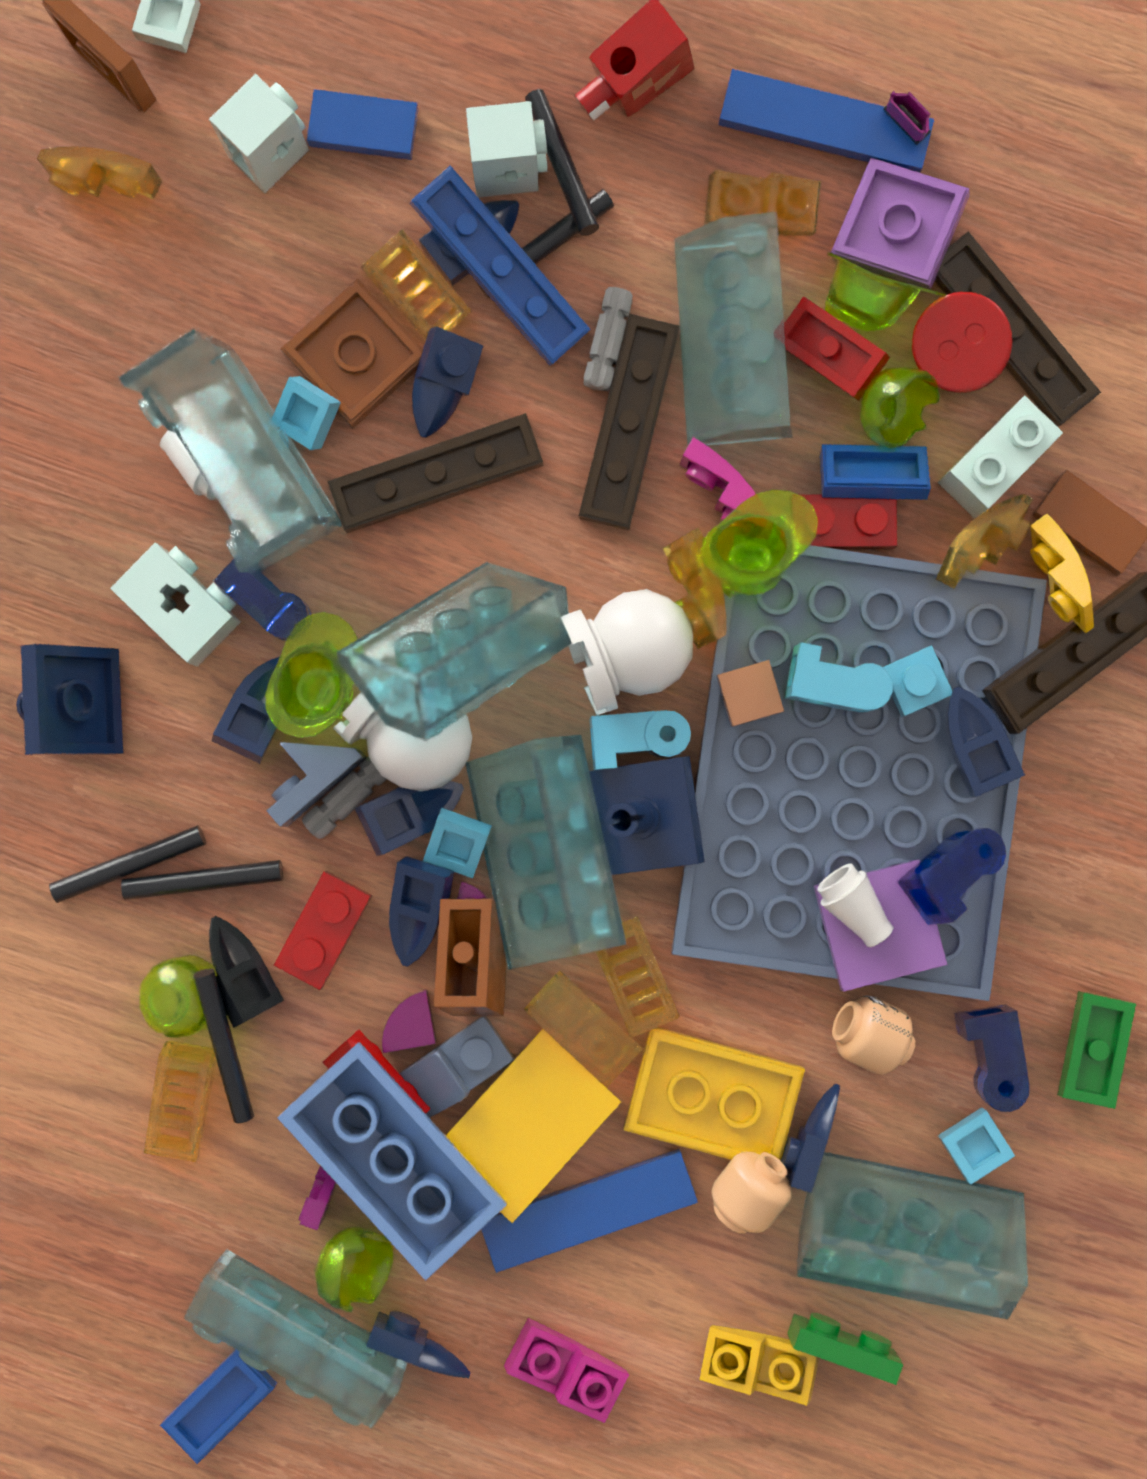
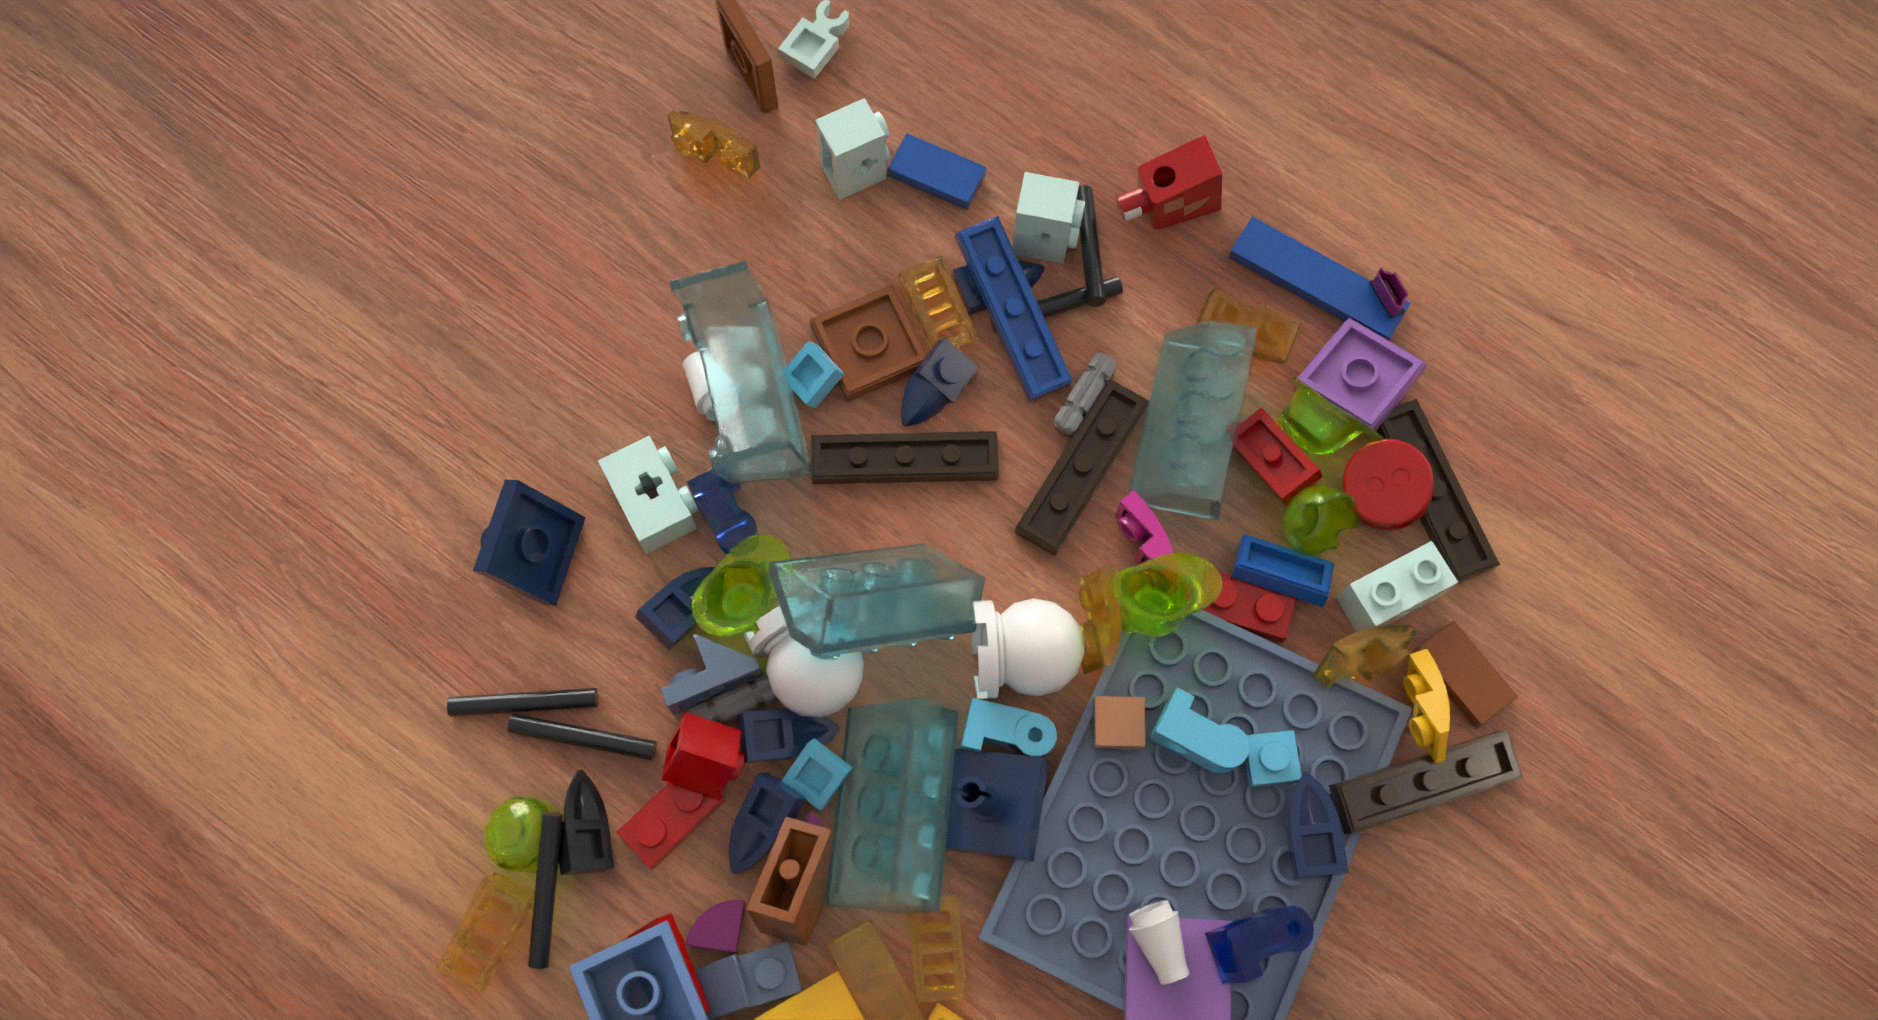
camera: 20 degrees right, 15 degrees down
(334, 863) = (703, 755): none -> red brick

